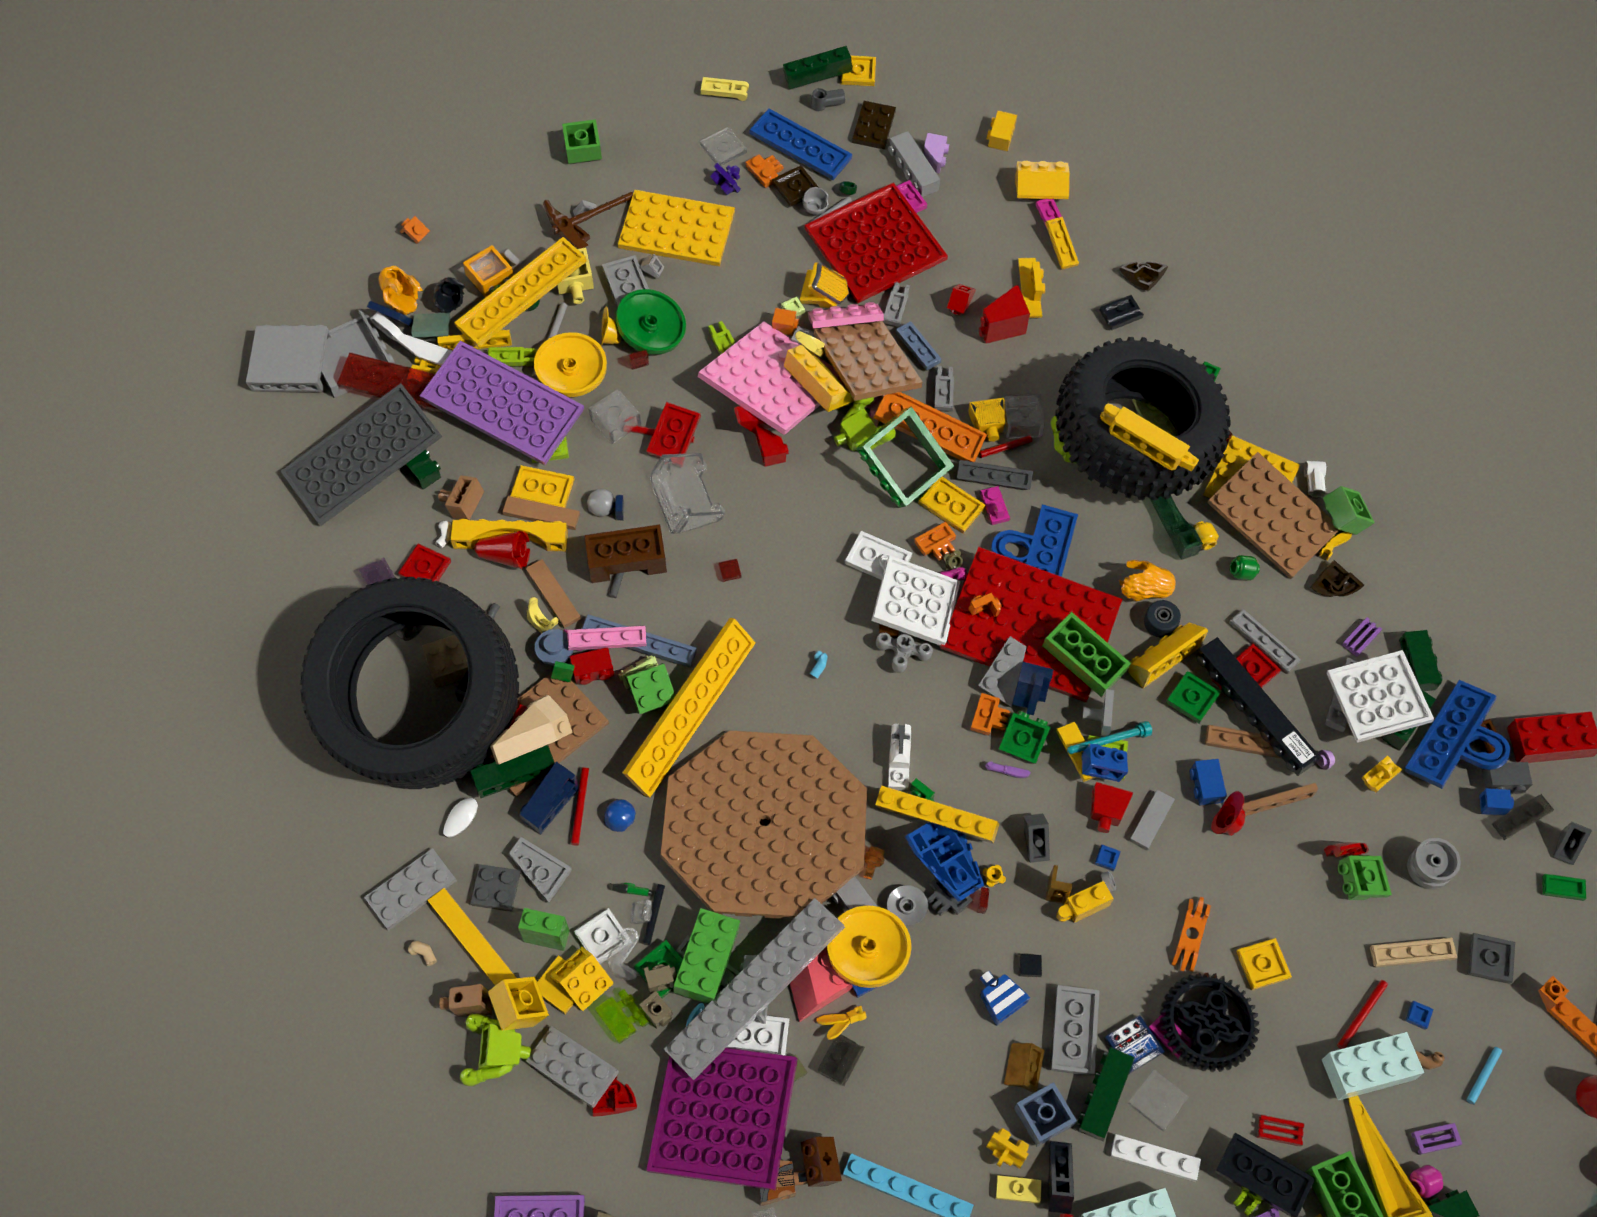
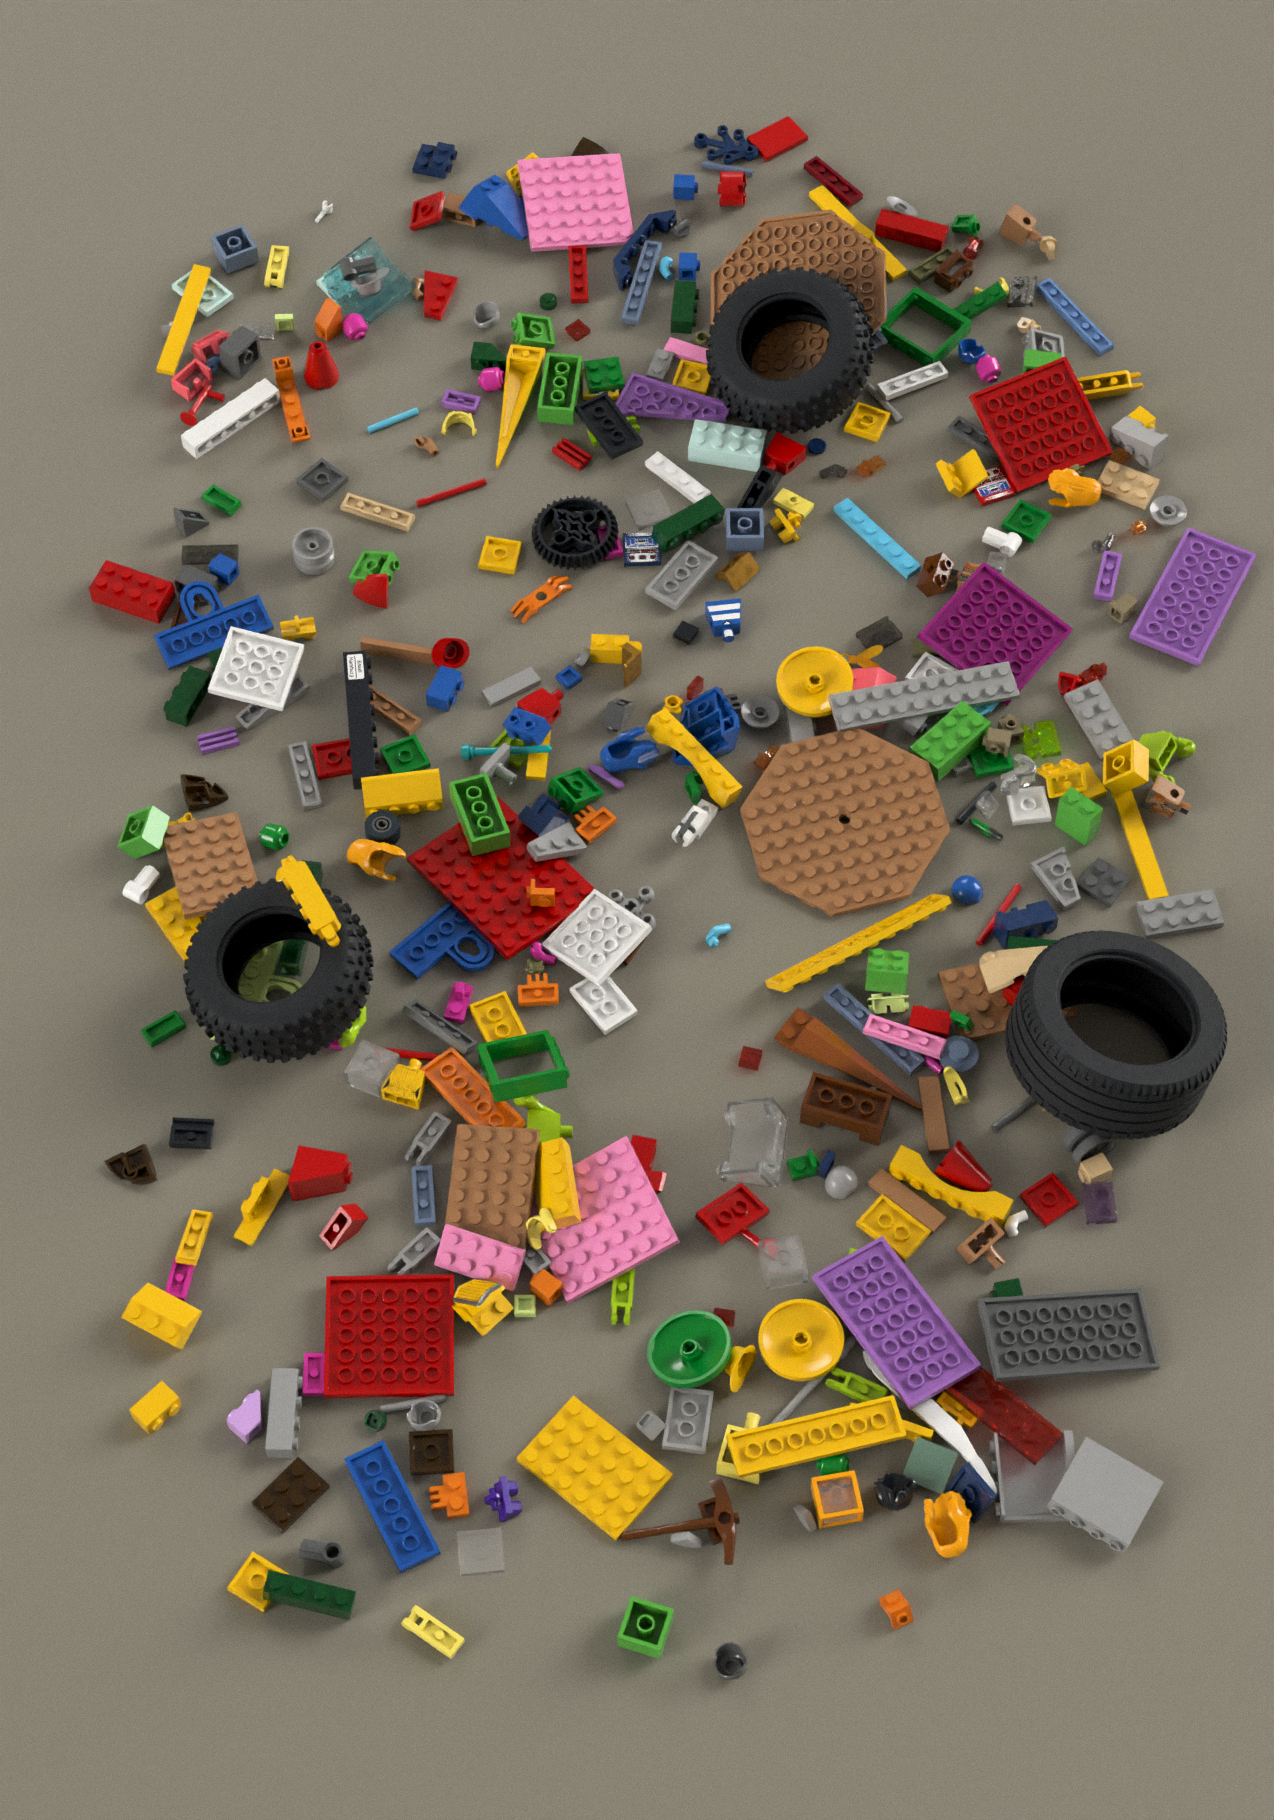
camera: 150 degrees left, 5 degrees down
(423, 949) = (1187, 860): tan arm -> none
(513, 149) = (730, 1661): none -> dark grey hair
(599, 1123) = (1093, 673): none -> clear red piece
(639, 501) = (803, 1166): none -> green bracket
(683, 608) = (816, 1041): none -> dark orange plate
(999, 794) = (627, 753): none -> blue hair
(1326, 759) = (333, 662): lavender plate -> none
(1372, 1066) = (474, 453): light aqua brick -> none
(1416, 1118) = (458, 417): none -> light yellow helmet
(1419, 1015) = (408, 474): blue tile -> none

